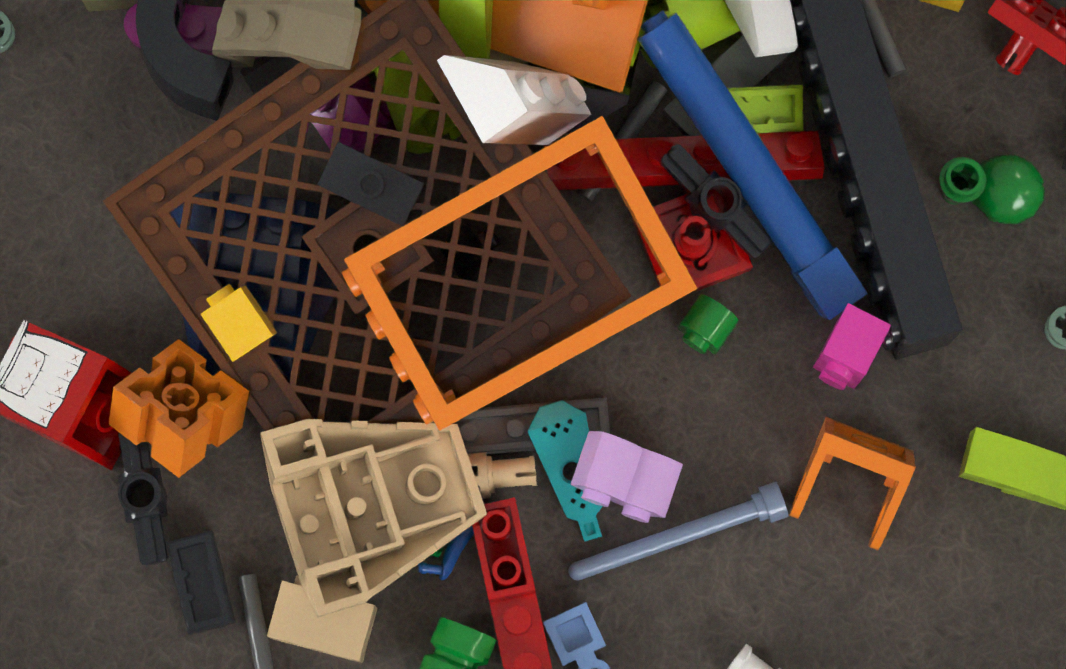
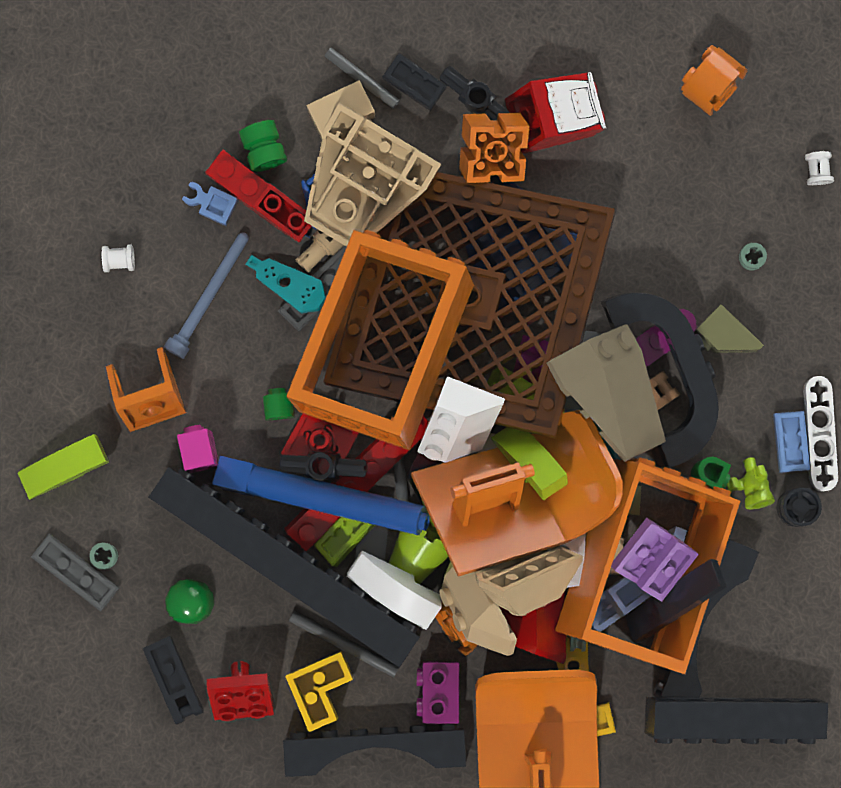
camera: 140 degrees right, 5 degrees up
(237, 321) = (498, 207): yellow brick -> none
(370, 184) = (492, 324): black plate -> none
(626, 475) = (255, 298): lavender brick -> none
(965, 172) = (204, 584): green cone -> none

